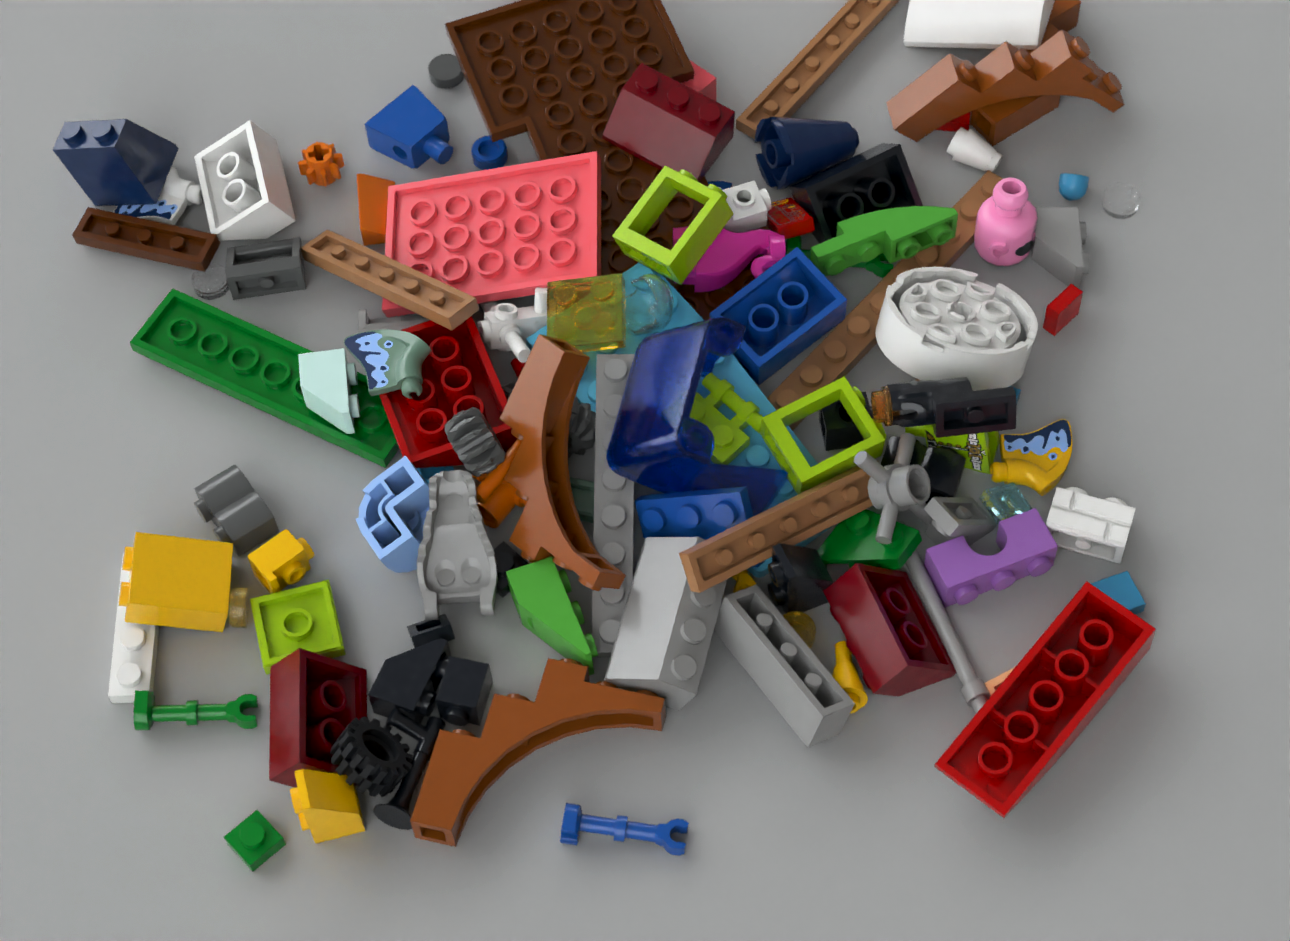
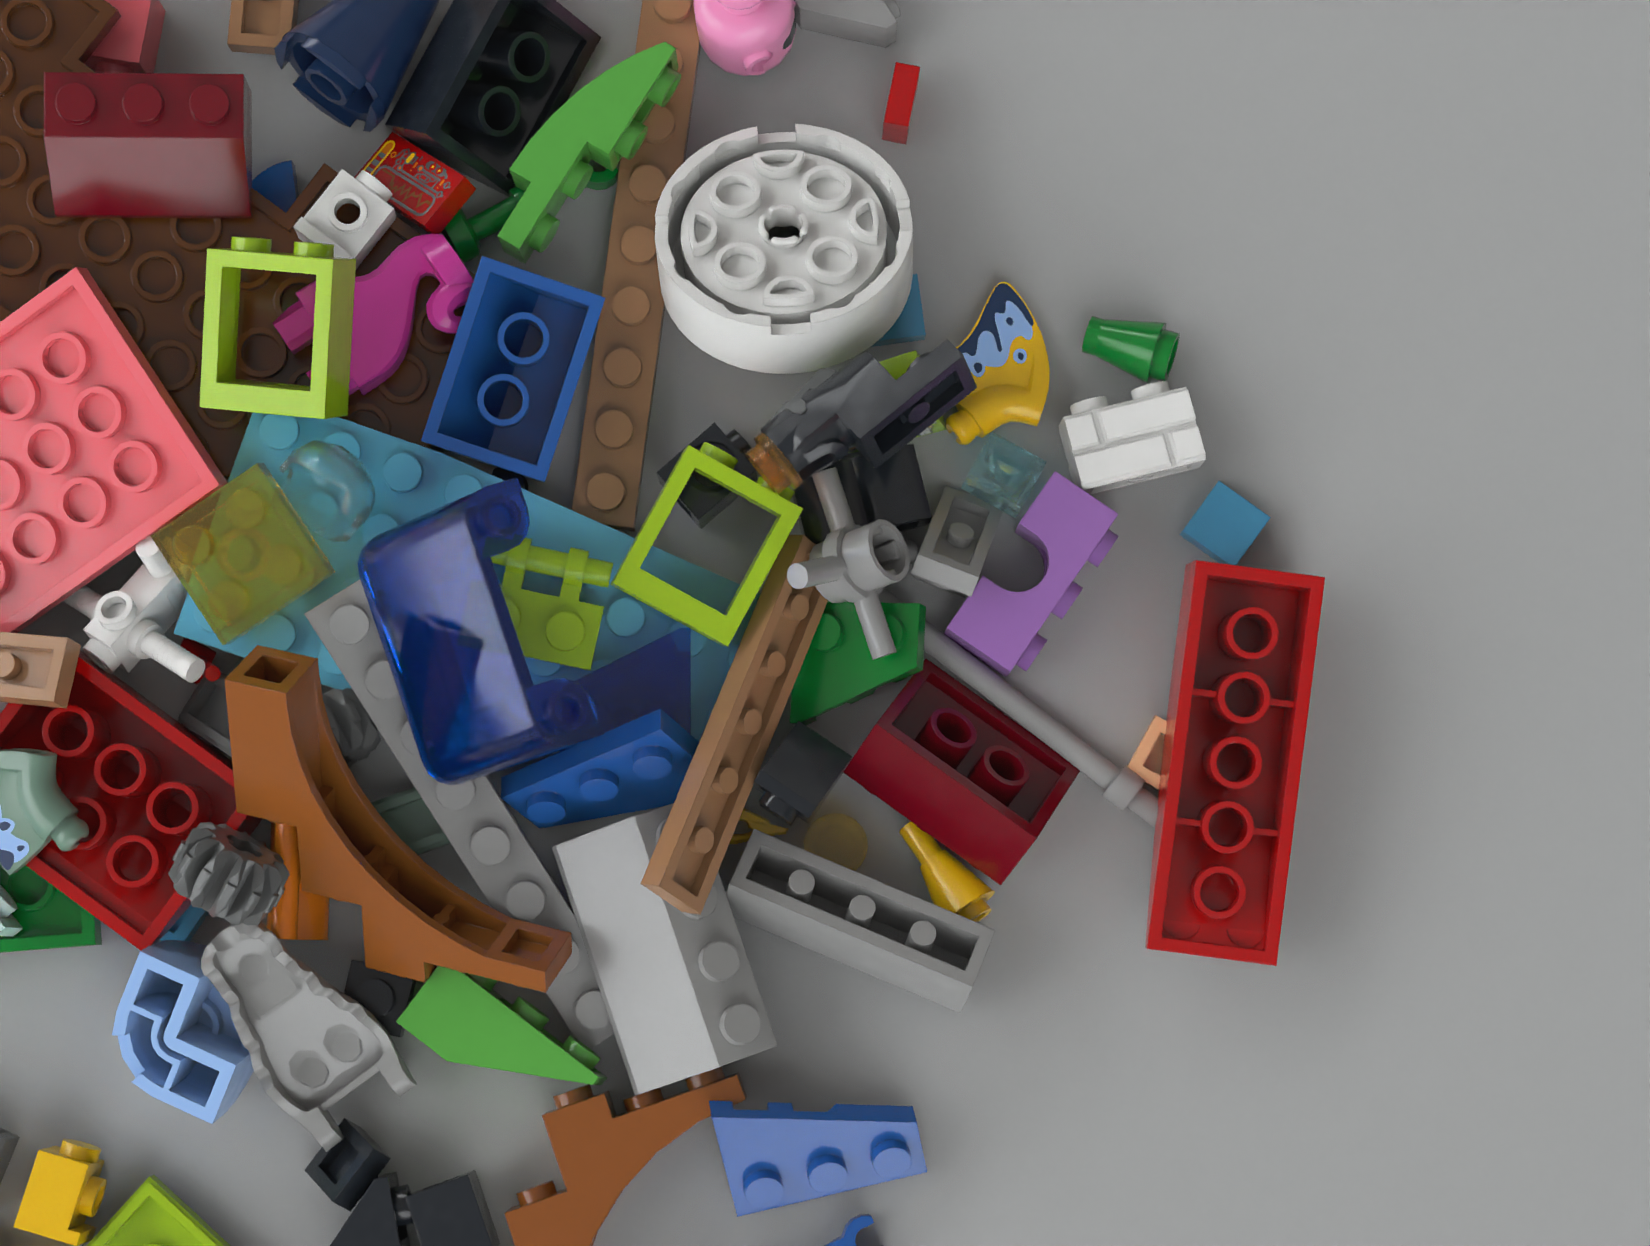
camera: 40 degrees left, 25 degrees up
(676, 767) = (804, 1155): none -> wing
(1119, 481) = (1133, 346): none -> green cone

